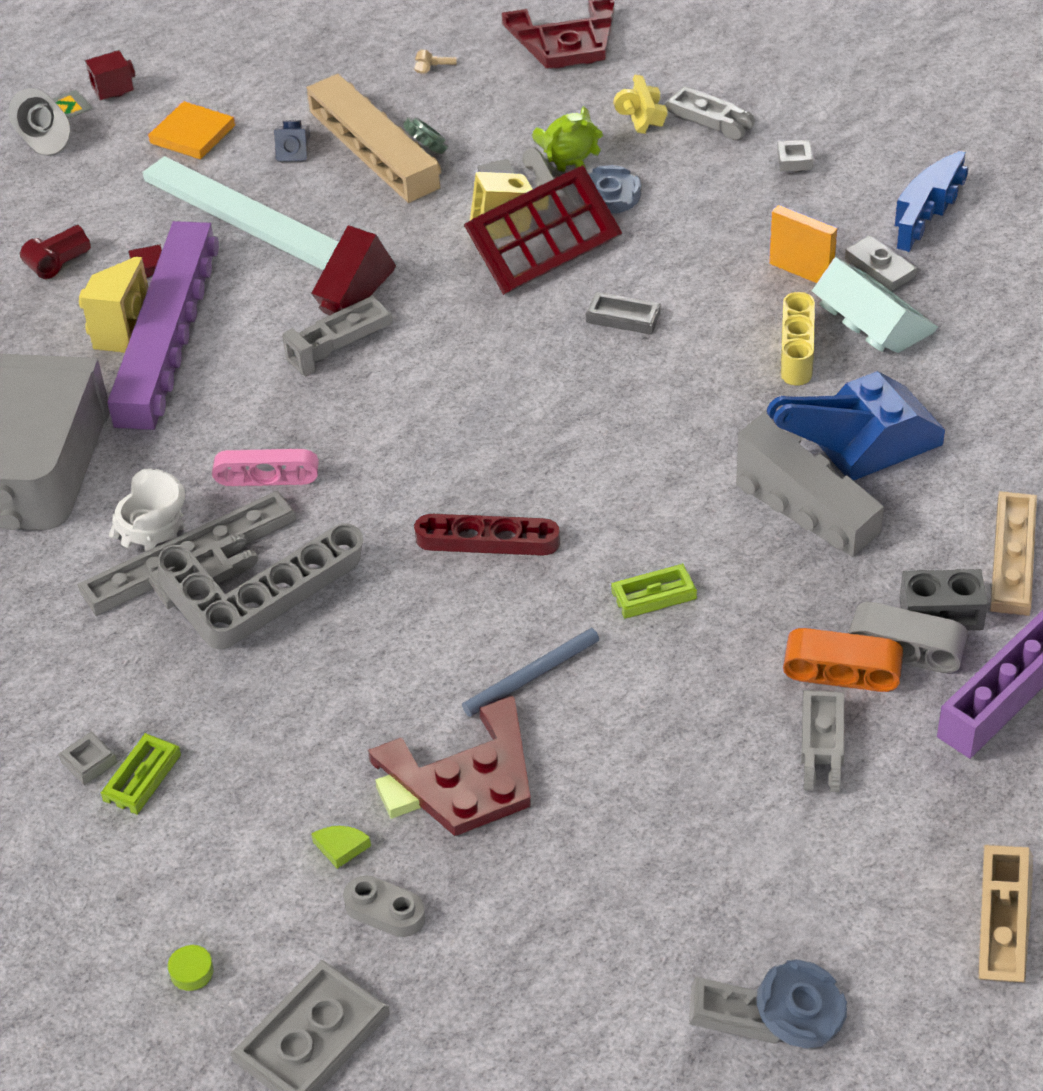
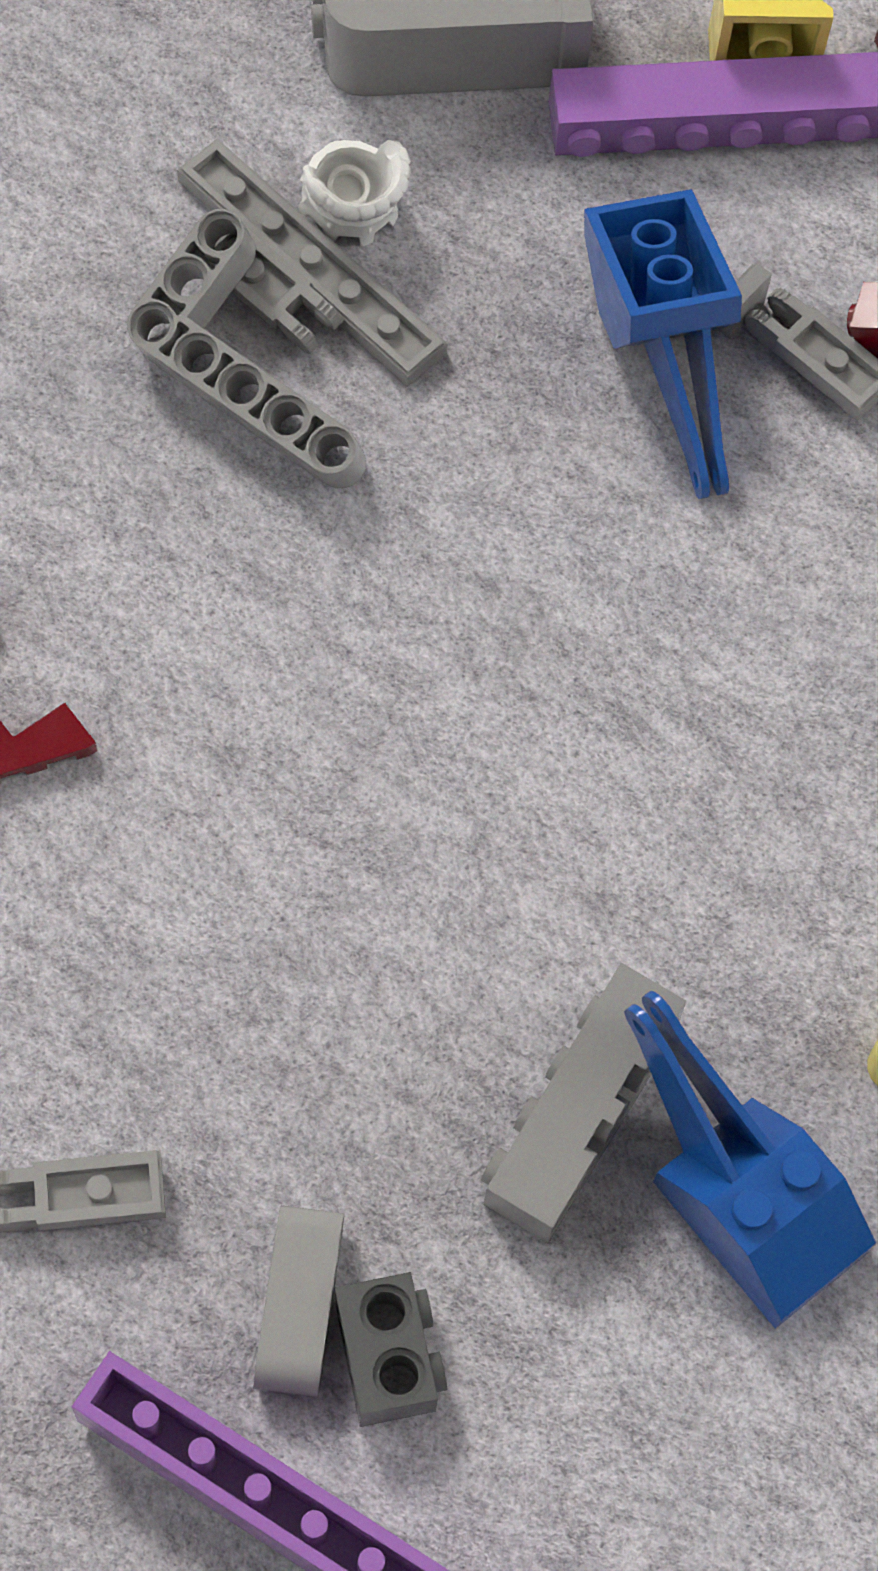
camera: 70 degrees right, 20 degrees up
(290, 458) = (486, 315): bright pink beam -> none
(295, 367) = (666, 279): none -> blue slope
(487, 530) = (417, 649): dark red beam -> none
(530, 671) = (156, 762): sand blue bar -> none
(656, 595) = (370, 950): lime tile -> none
(843, 659) = (235, 1206): orange beam -> none
(1013, 553) = (533, 1463): tan tile -> none

